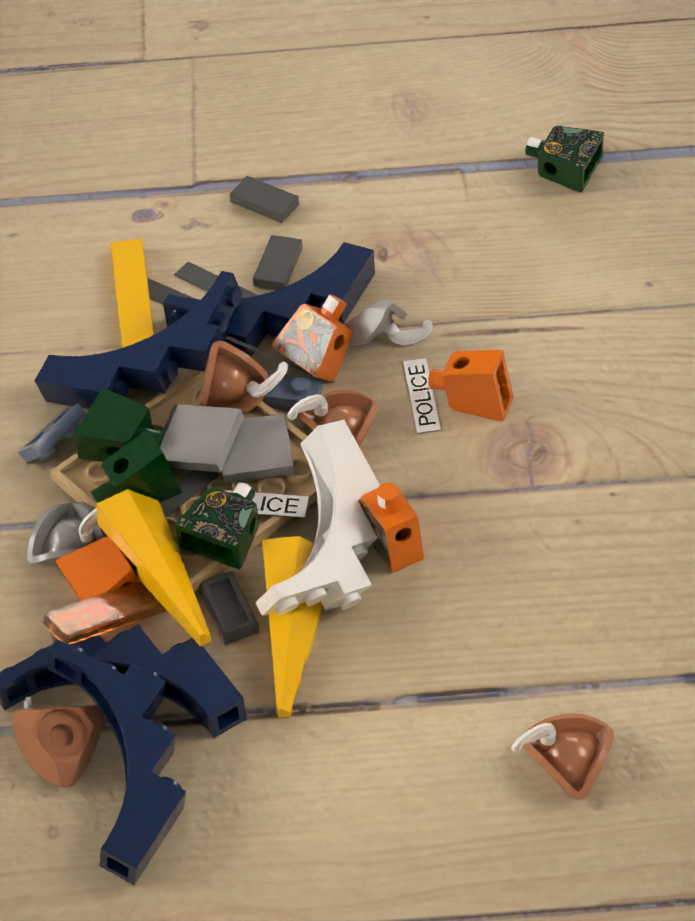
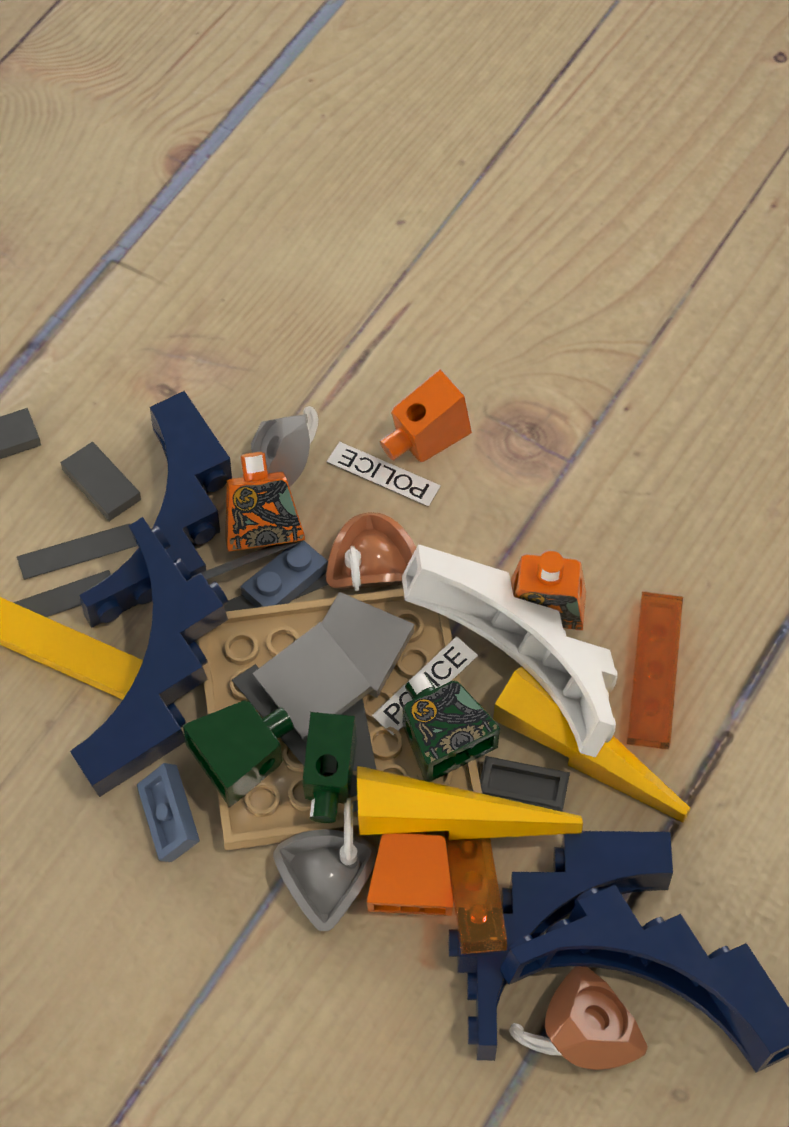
camera: 60 degrees left, 10 degrees up
(236, 379) = (270, 609): nougat hat -> none
(390, 629) = (655, 671): none -> clear orange tile
(567, 155) = (192, 170): dark green torso -> none

